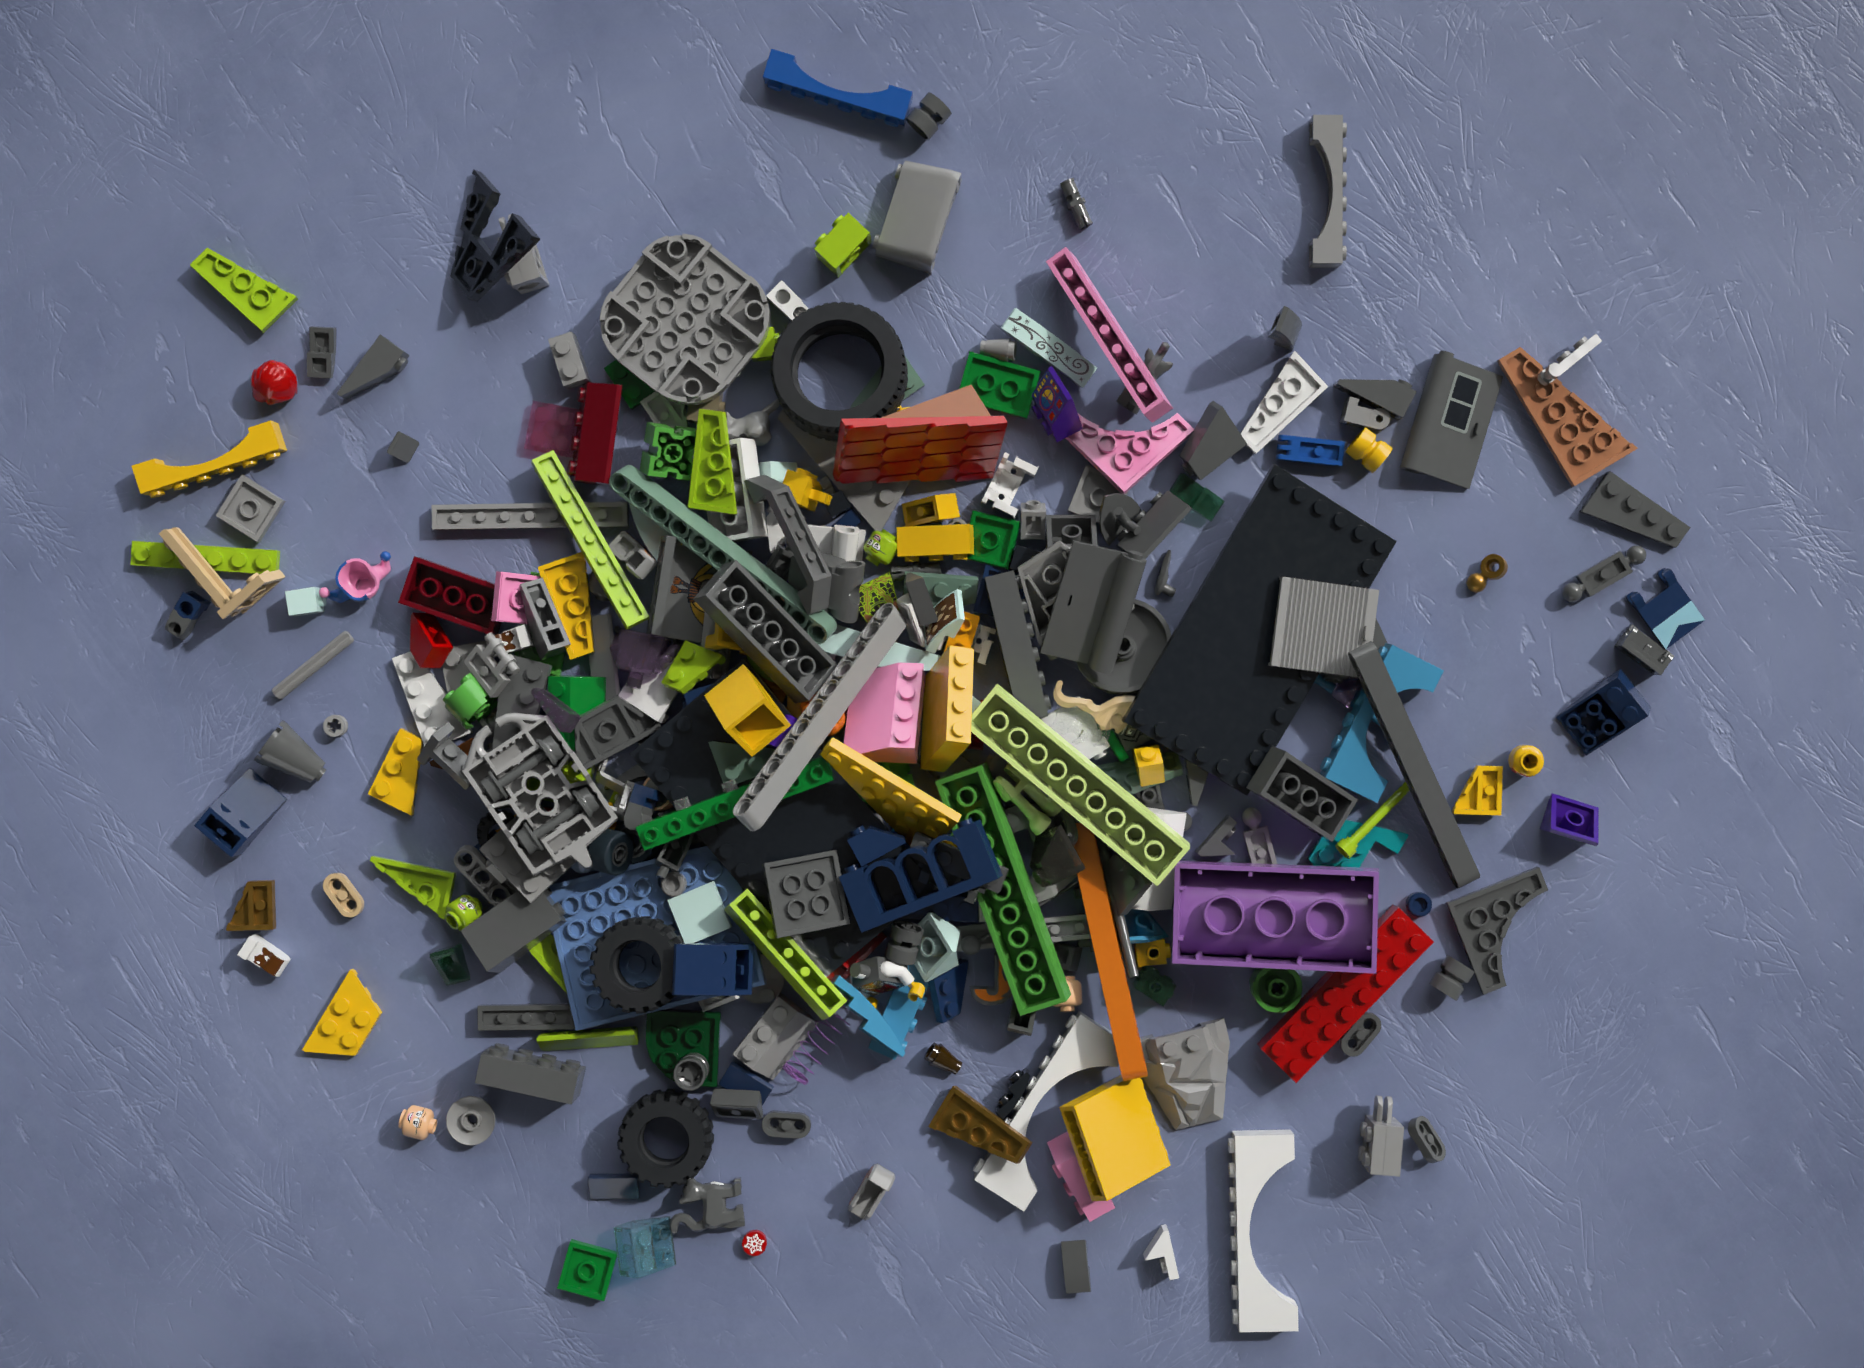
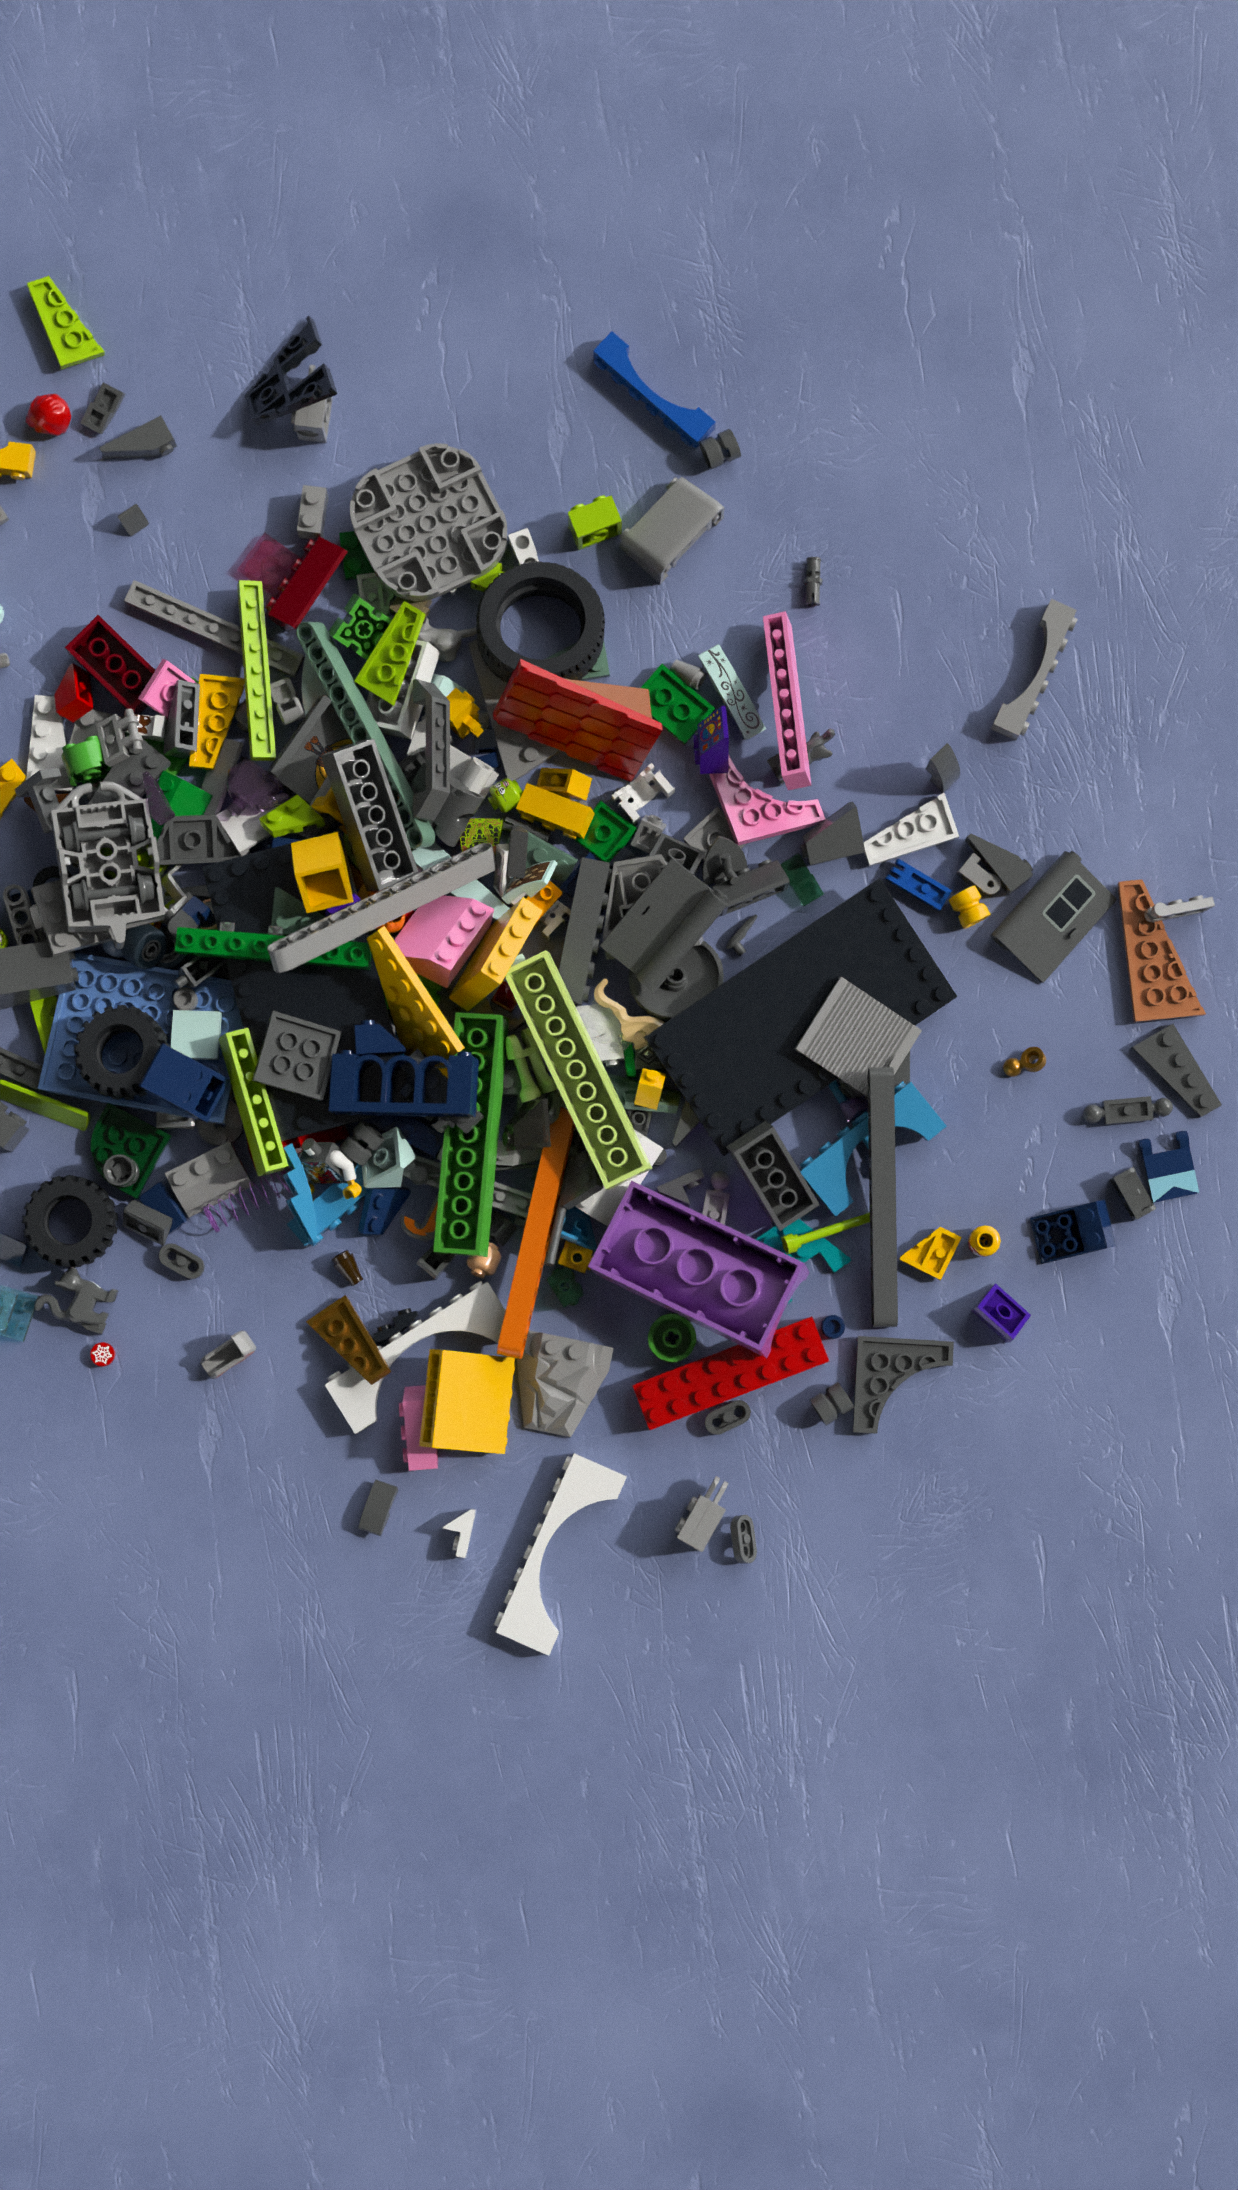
camera: 30 degrees right, 5 degrees down
(358, 580) = (39, 614): bright pink piece -> none

